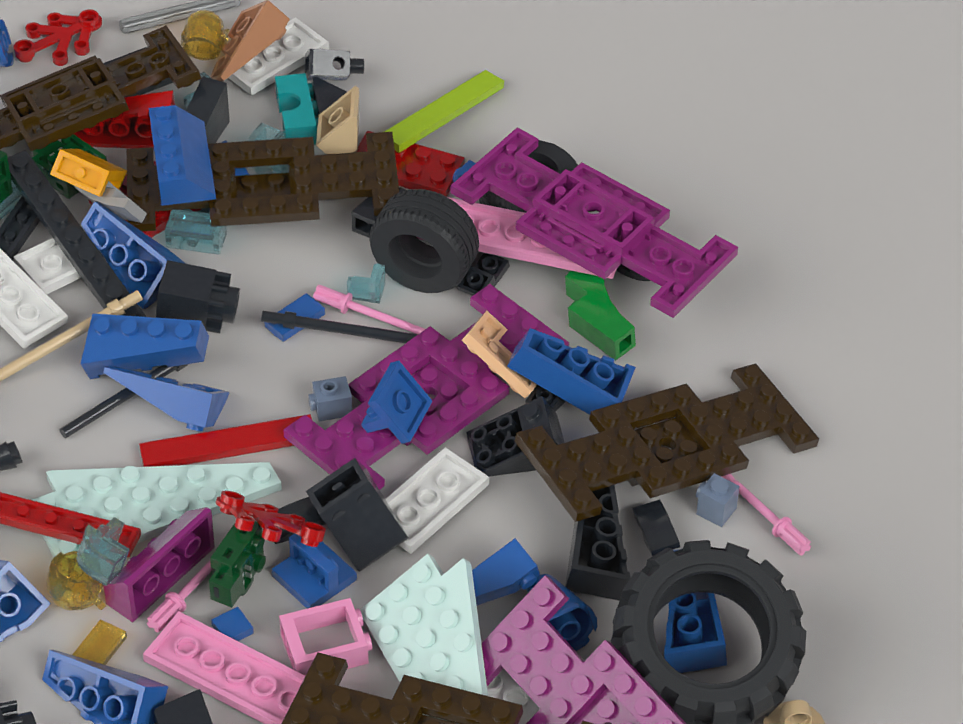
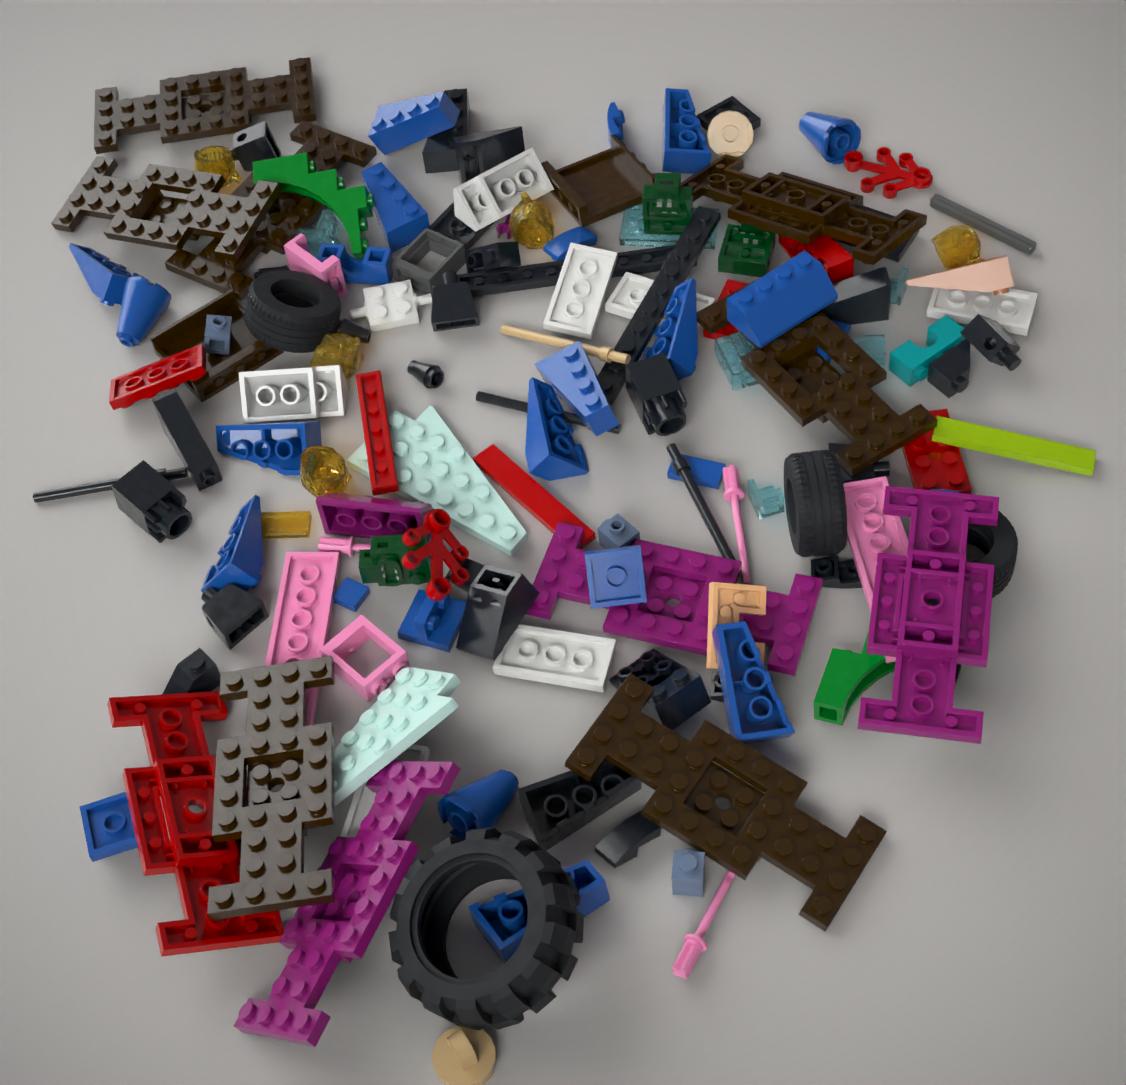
camera: 70 degrees right, 5 degrees up
(87, 171) = (719, 253): light orange panel -> none
(101, 553) = (340, 466): clear light blue brick -> none
(117, 203) = (709, 284): light grey slope -> none
(340, 125) = (921, 387): tan slope -> none
(504, 573) = (490, 743): blue wedge -> none

